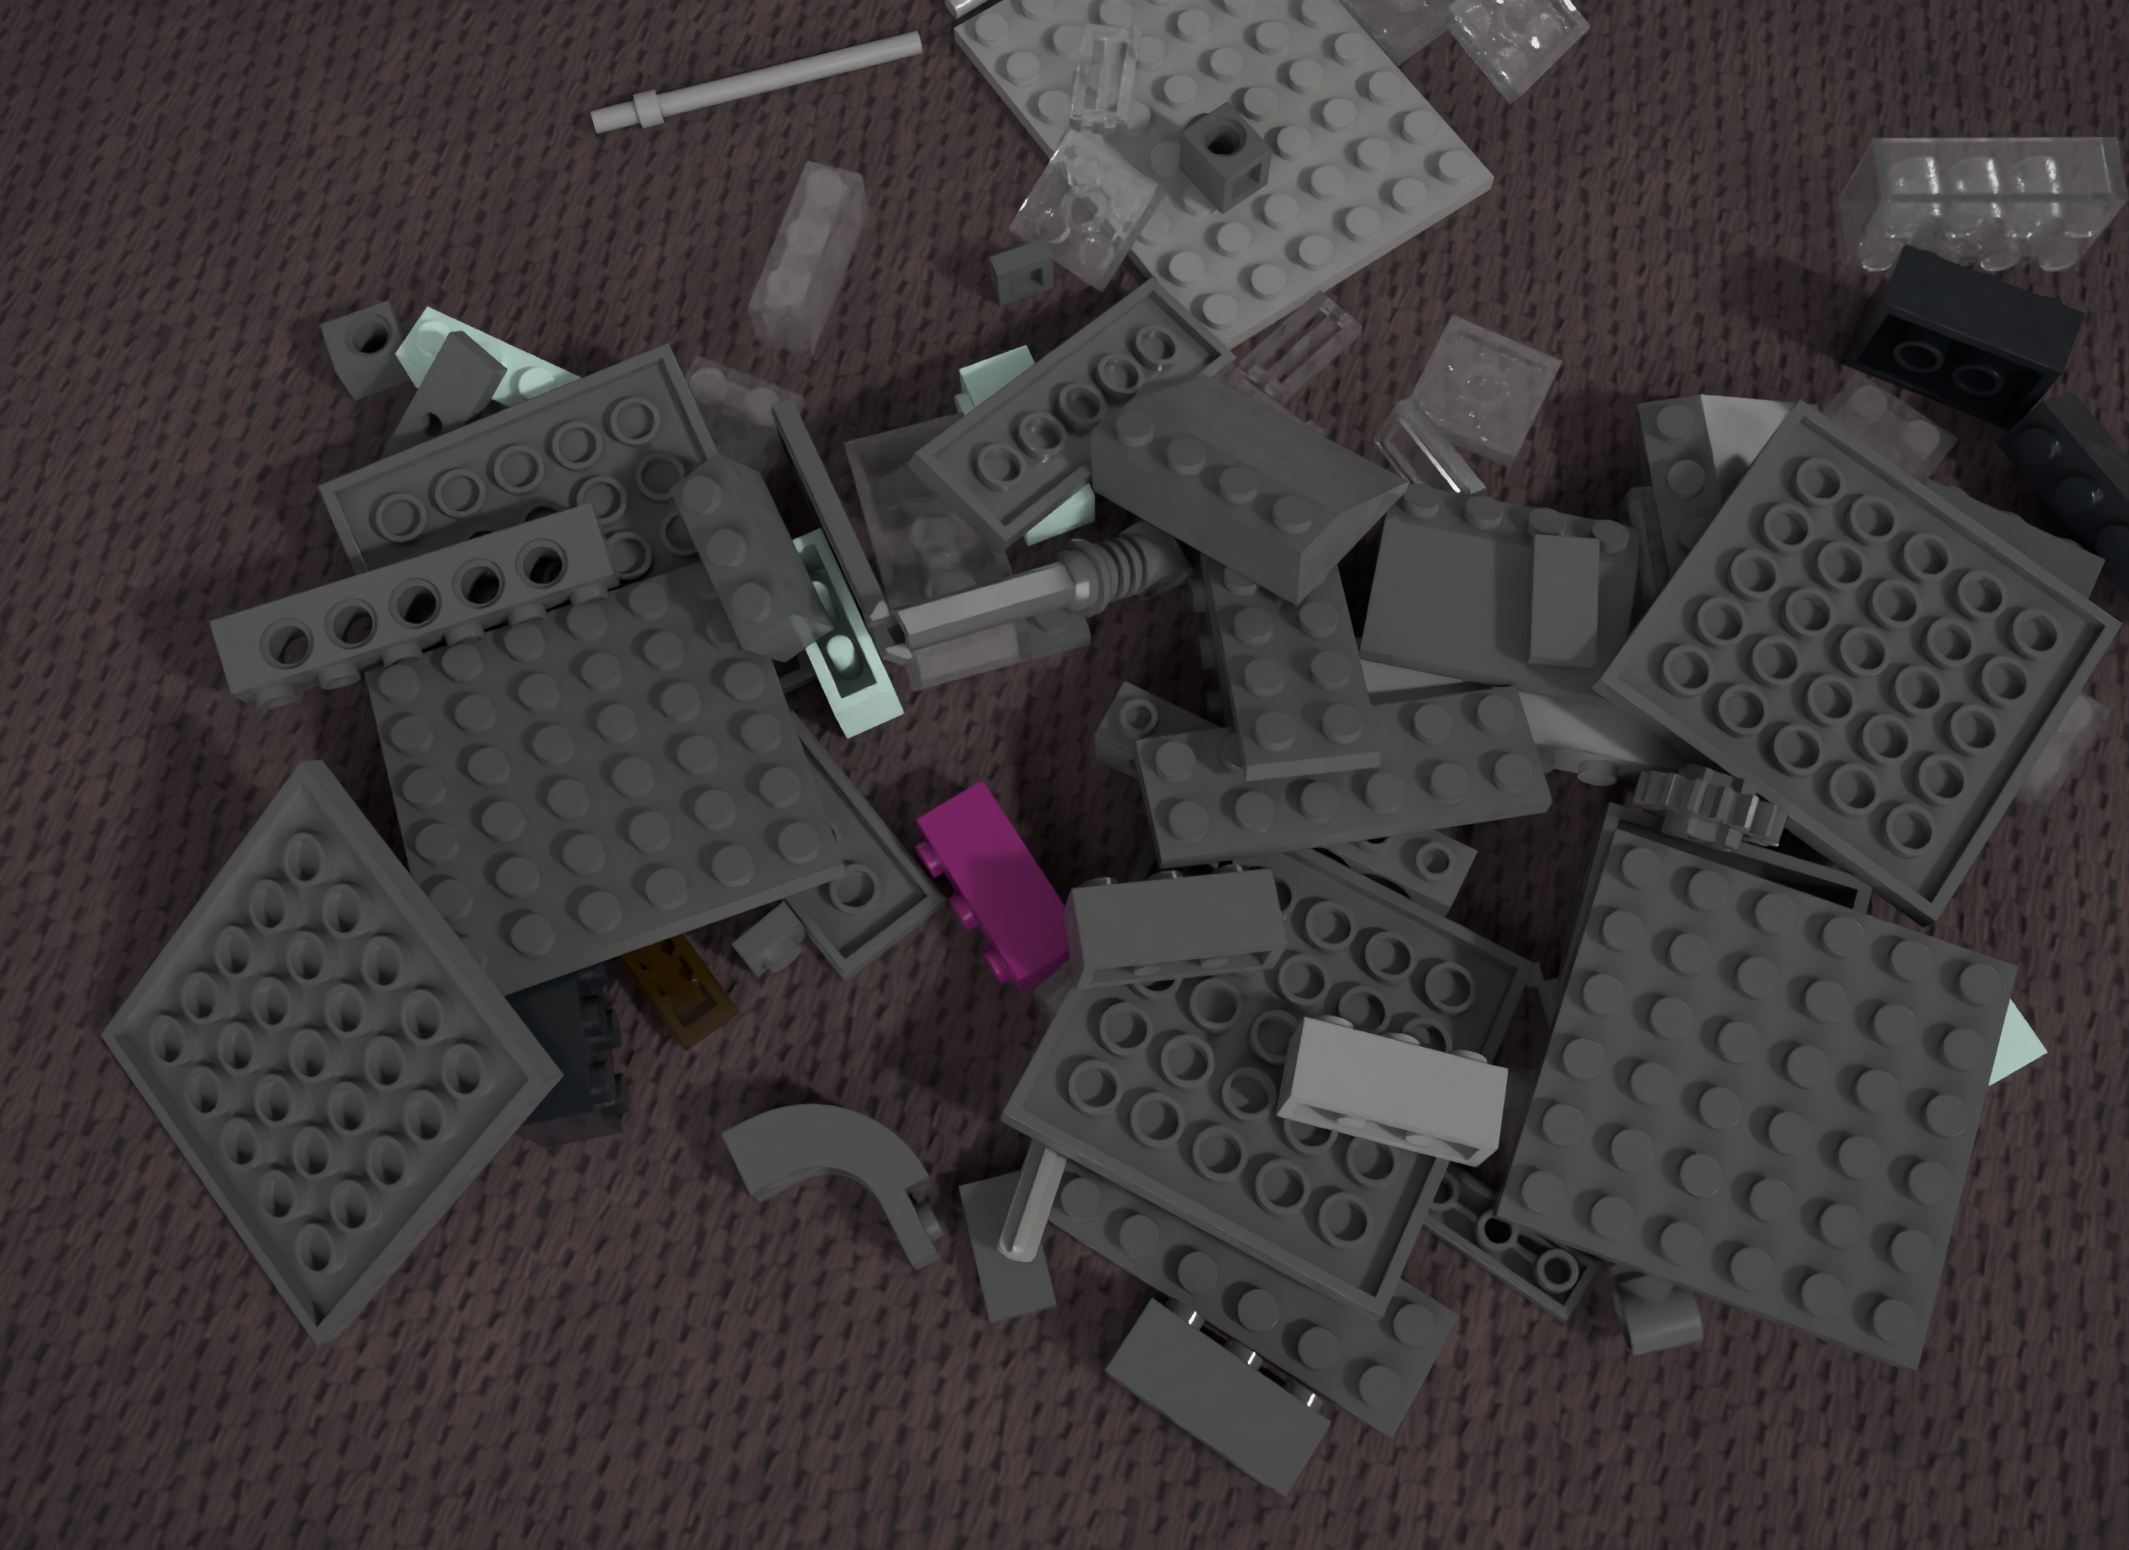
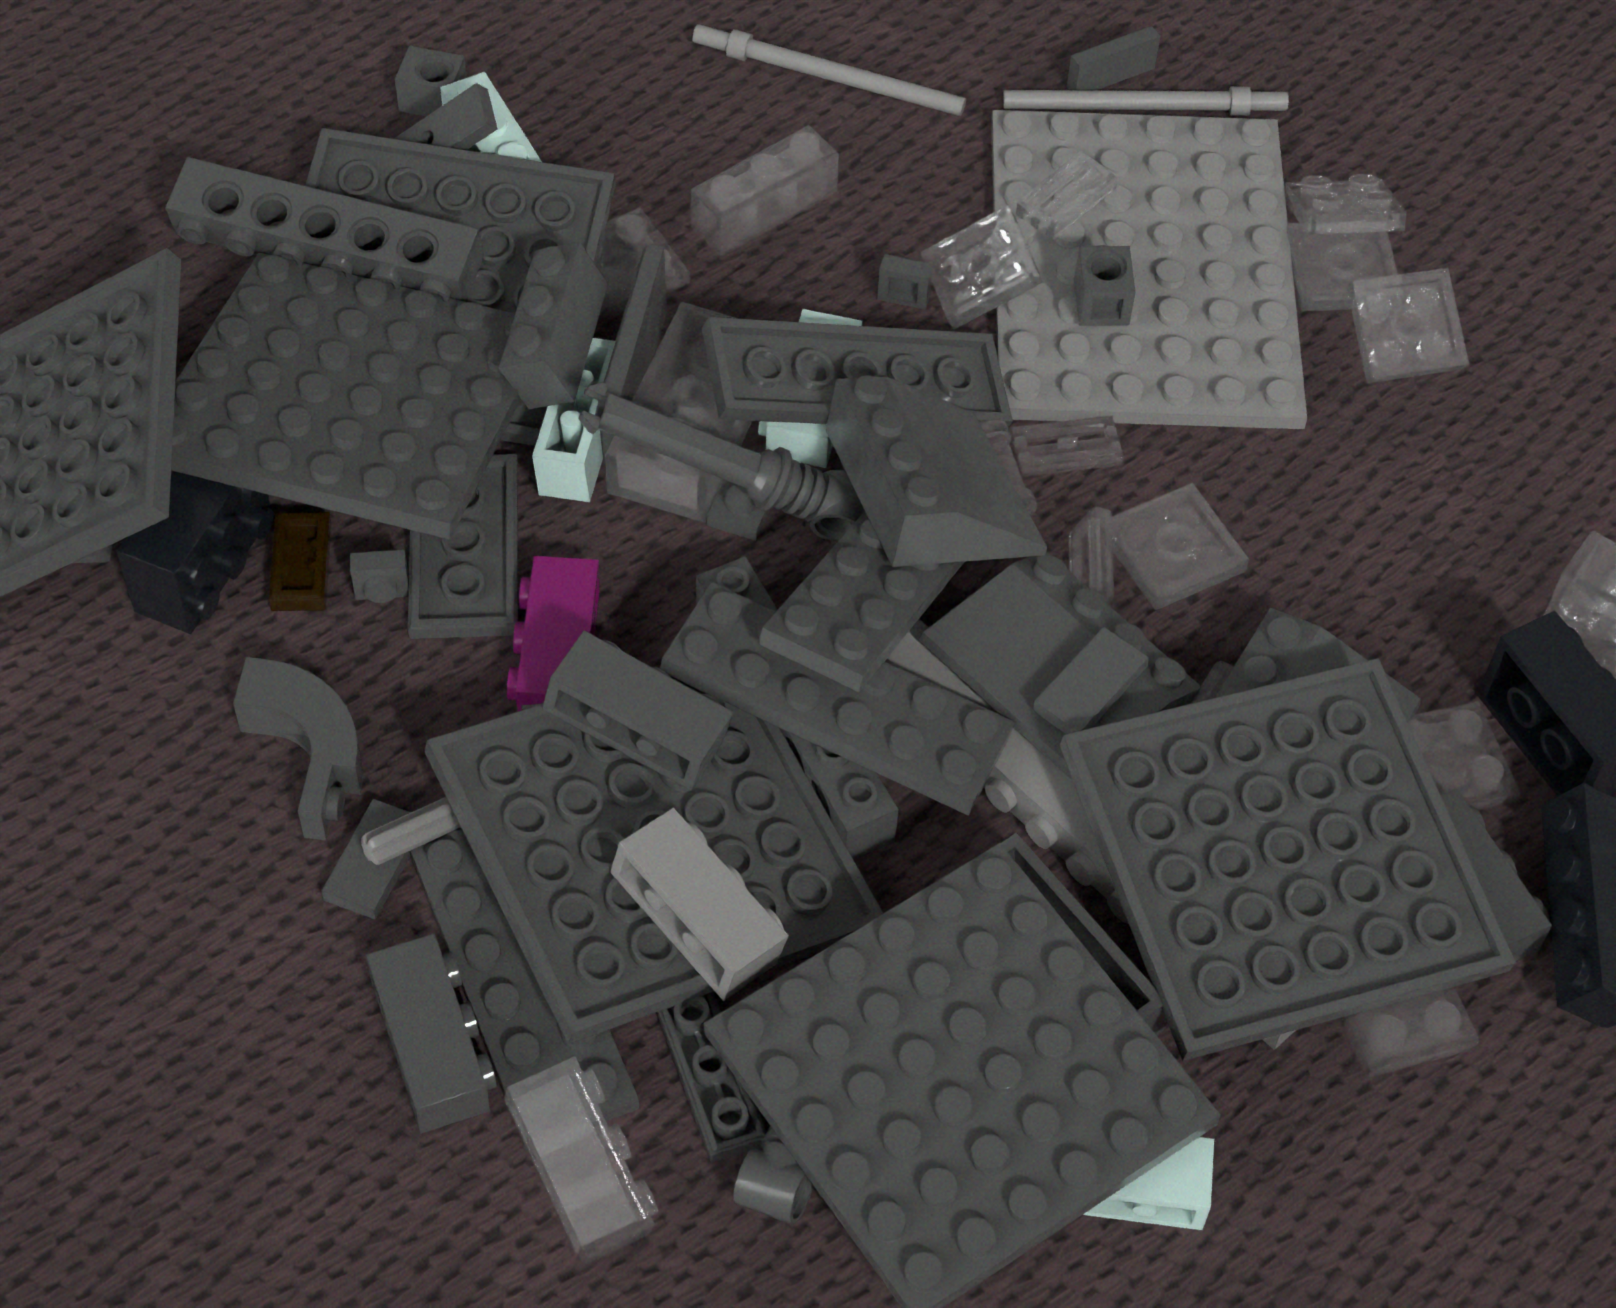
camera: 30 degrees right, 15 degrees down
(1475, 1427) = (581, 1160): none -> clear brick
(1709, 808) = (1073, 865): dark grey gear -> none

